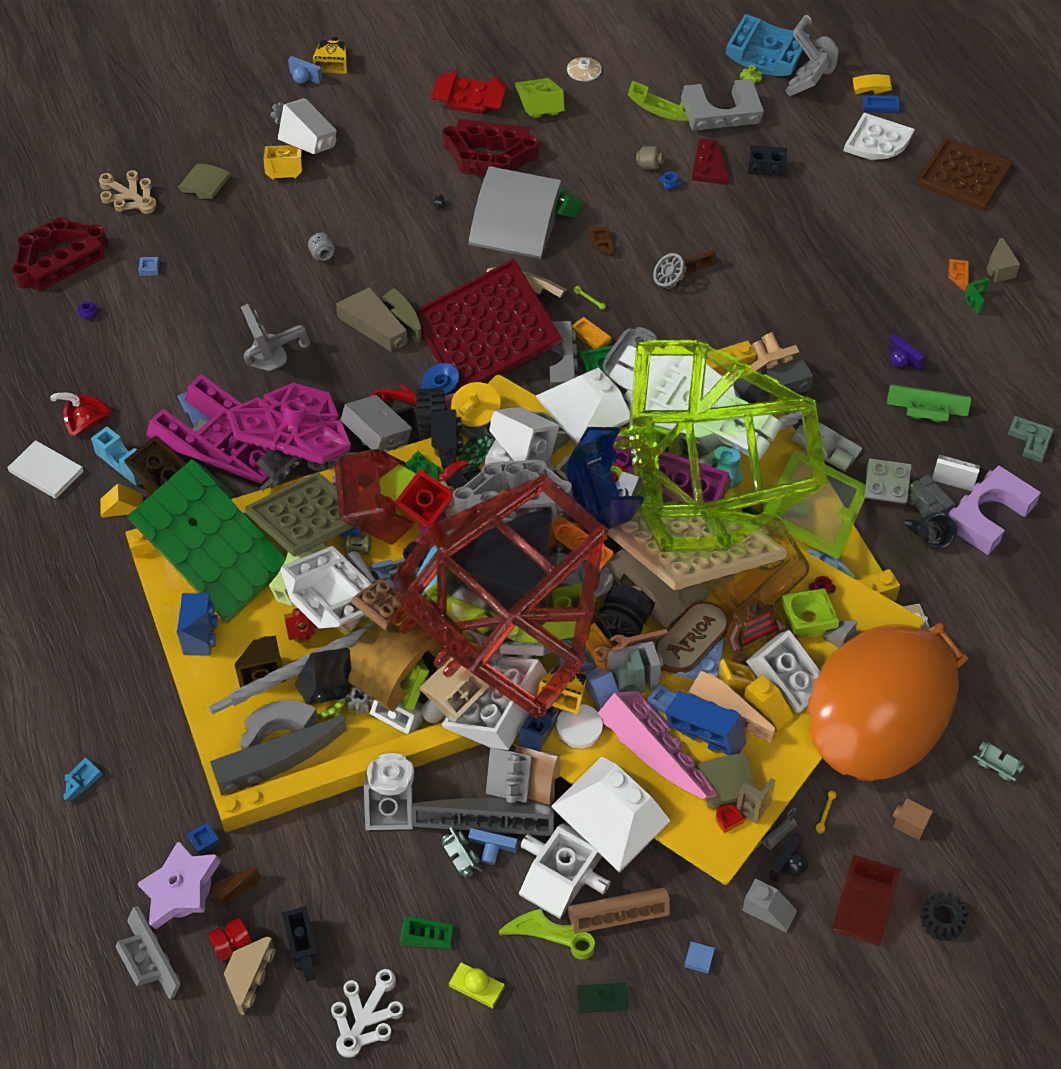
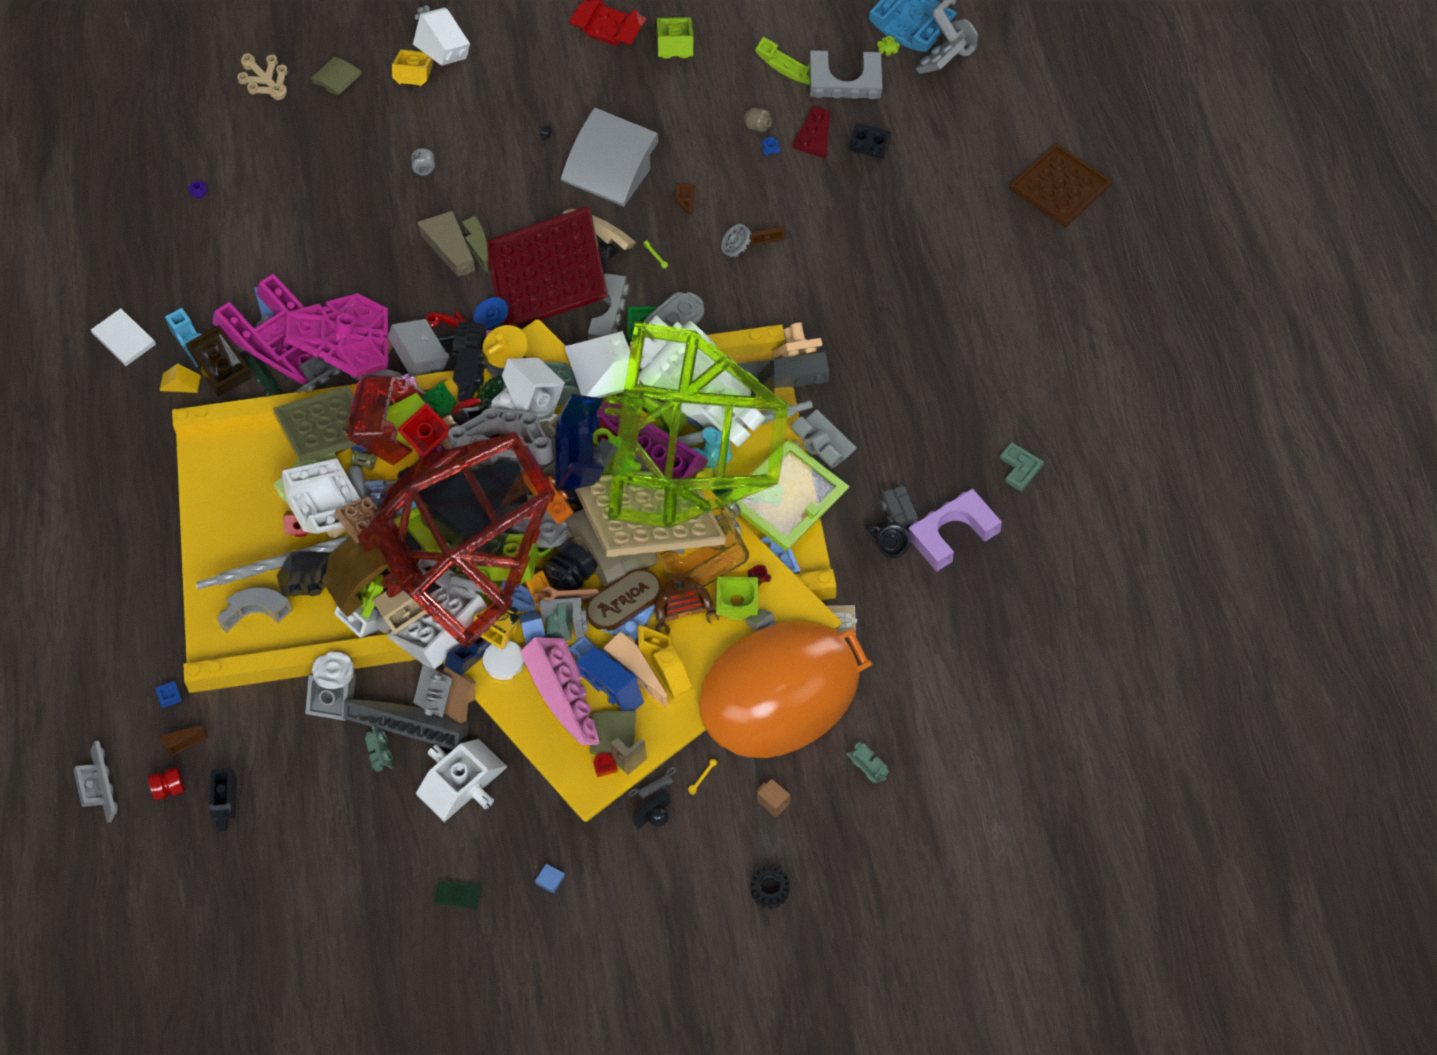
camera: 15 degrees right, 5 degrees up
(81, 779) = (82, 623): dark azure slope -> none
(82, 412) = (167, 288): red hat -> none
(85, 249) = (171, 144): dark red brick -> none
(149, 266) = (264, 154): medium blue tile -> none
(179, 885) = (136, 730): lavender plate -> none
(197, 624) = (209, 506): blue slope -> none
(208, 540) = (234, 432): green piece -> none
(248, 971) = (173, 813): tan slope -> none
(258, 660) = (251, 548): dark brown slope -> none
(267, 349) = (345, 257): light grey plate -> none
(274, 756) = (244, 635): dark grey slope -> none
(335, 710) = (306, 605): lime plant -> none
(359, 701) = (327, 601): light grey gear -> none
(365, 1016) = (259, 869): white plant -> none
(418, 941) = (325, 802): green slope -> none
(476, 985) = (357, 863): neon yellow tile -> none
(492, 844) = (406, 747): medium blue tile -> none
(515, 141) = (636, 80): dark red brick -> none
(537, 925) = (424, 824): lime piece -> none
(568, 203) = (663, 155): green slope -> none
(584, 69) = (729, 13): tan dish -> none
(591, 334) = (644, 290): light orange tile -> none
(611, 813) = (506, 742): white slope -> none
(619, 910) = (493, 825): medium nougat brick -> none
(769, 905) = (622, 847): light grey slope -> none
(788, 668) = (697, 644): white slope -> none
(866, 900) = (706, 859): clear red slope -> none
(875, 82) = (1001, 72): yellow slope -> none
(878, 138) = (987, 134): white plate -> none
(881, 104) = (1005, 97): blue tile -> none
(887, 481) = (864, 485): light grey bracket -> none
(904, 354) = (928, 362): dark purple tile -> none
(928, 403) = (933, 416): bright green bracket -> none
(955, 472) = (934, 486): white slope -> none
(959, 273) = (1014, 288): orange tile -> none
(974, 297) = (1017, 312): green bracket -> none
(1002, 263) = (1058, 285): dark tan slope -> none

